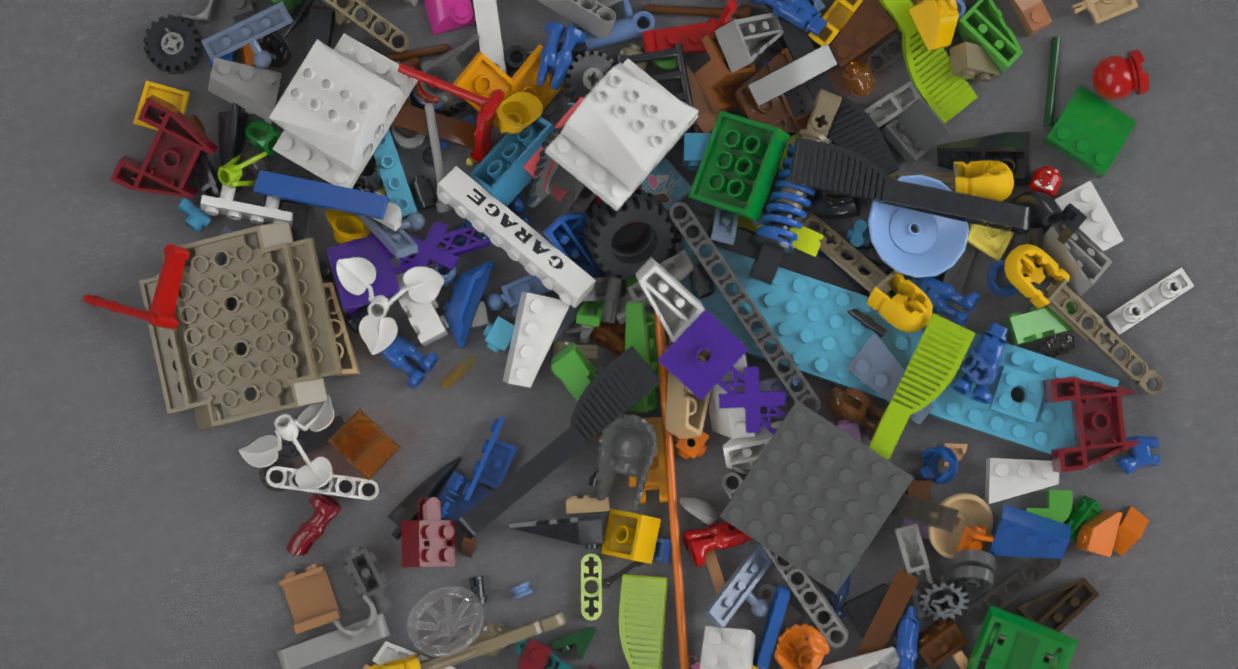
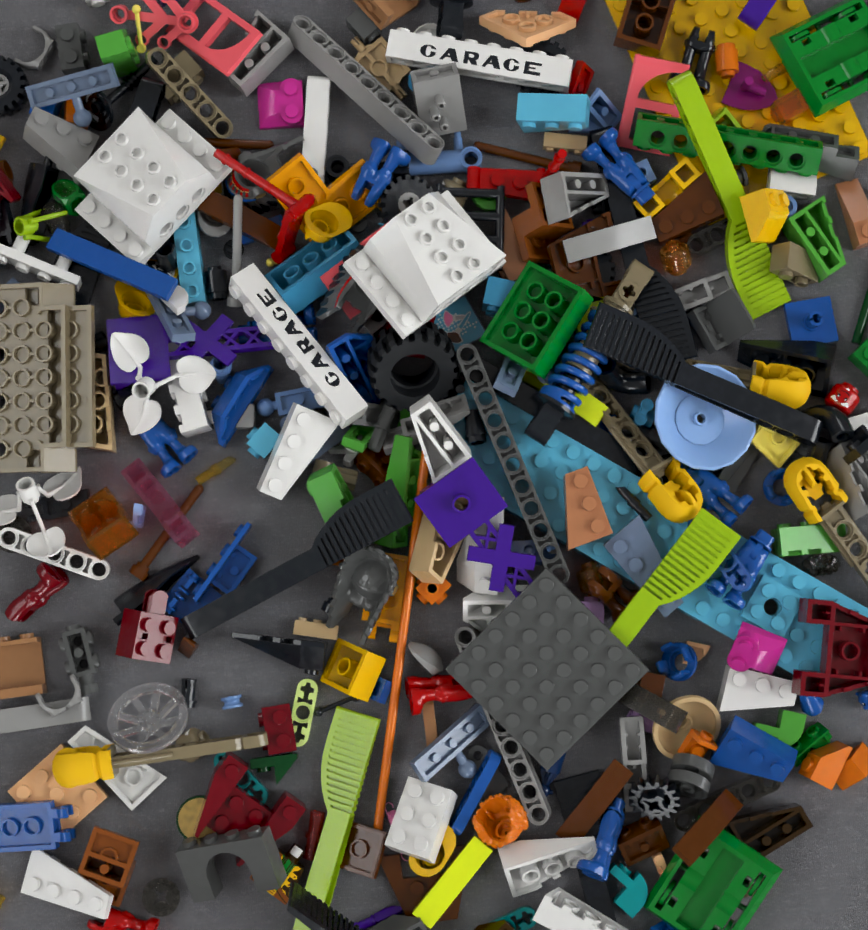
camera: 10 degrees right, 0 degrees up
(395, 431) = (139, 512): none -> light blue tile
(407, 482) = (141, 568): none -> reddish brown piece
(414, 414) = (160, 503): none -> clear pink arch
(572, 604) = (279, 728): none -> dark red bracket
(820, 338) = (583, 510): none -> nougat wedge
(999, 614) = (707, 827): none -> reddish brown slope
(1001, 112) = (811, 320): none -> blue tile
(1011, 438) = (755, 650): none -> dark pink slope
(1074, 479) = (811, 705): none -> blue cone

